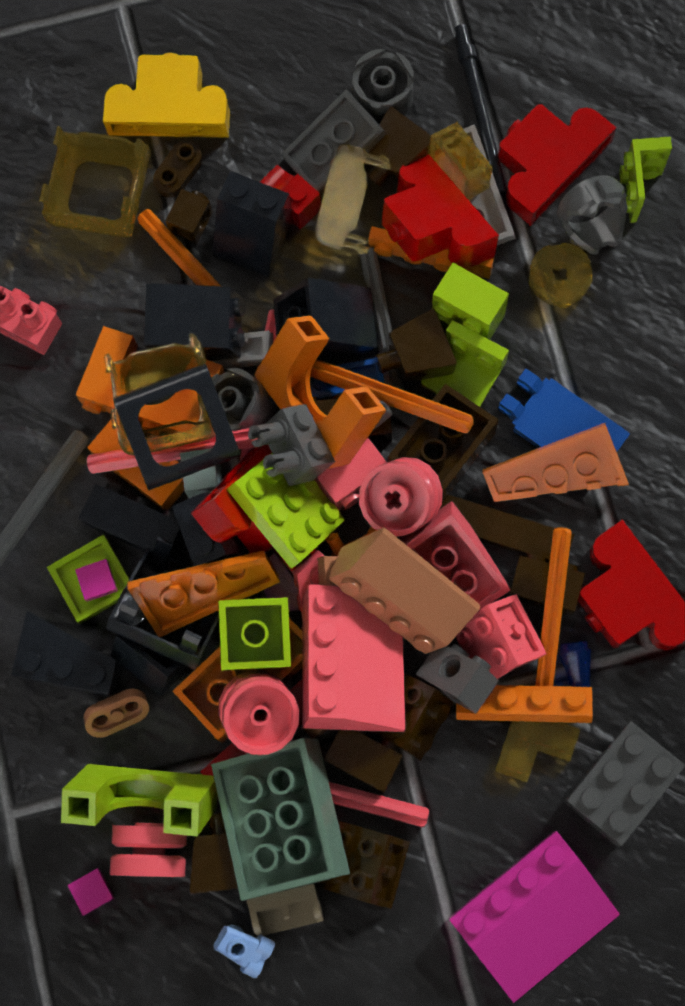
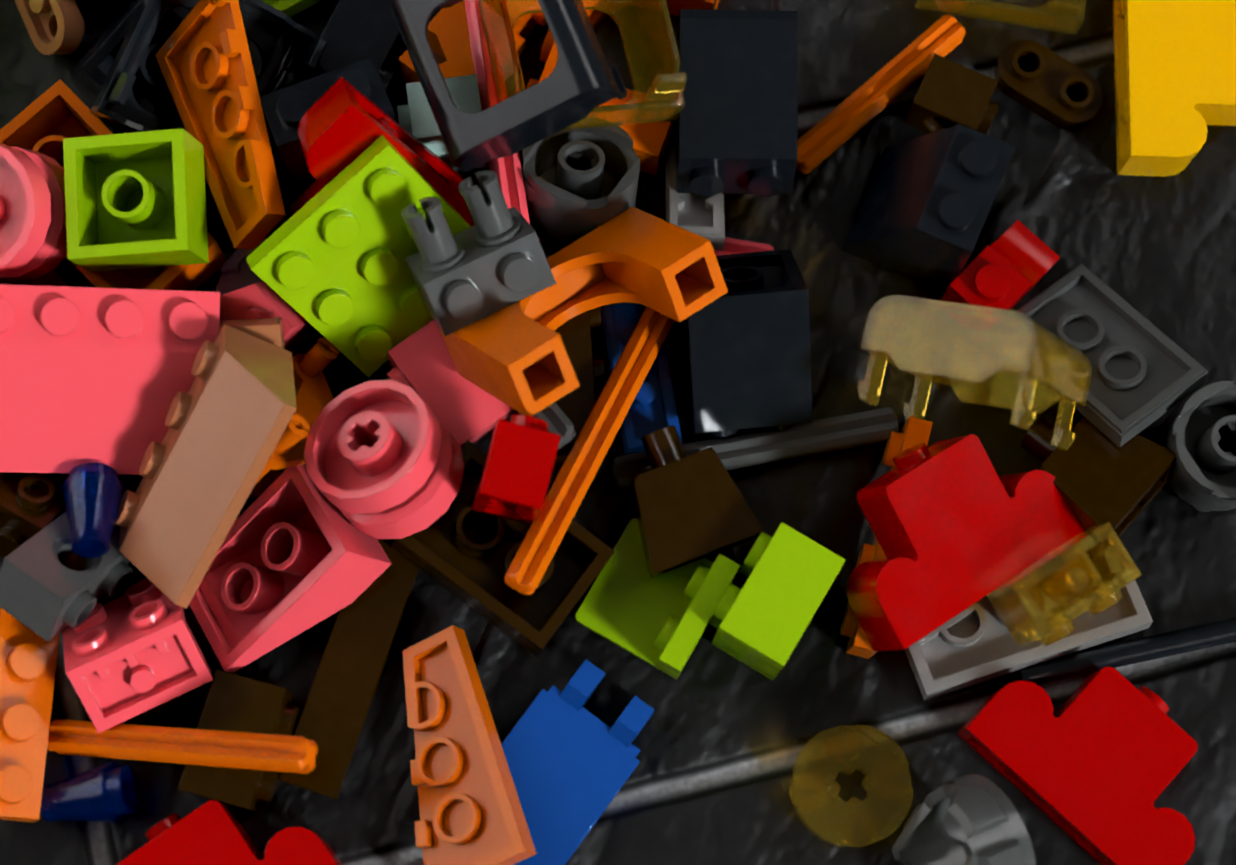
camera: 75 degrees right, 0 degrees up
(412, 419) = (517, 469): none -> red arch
(421, 661) = (92, 504): none -> clear blue cone

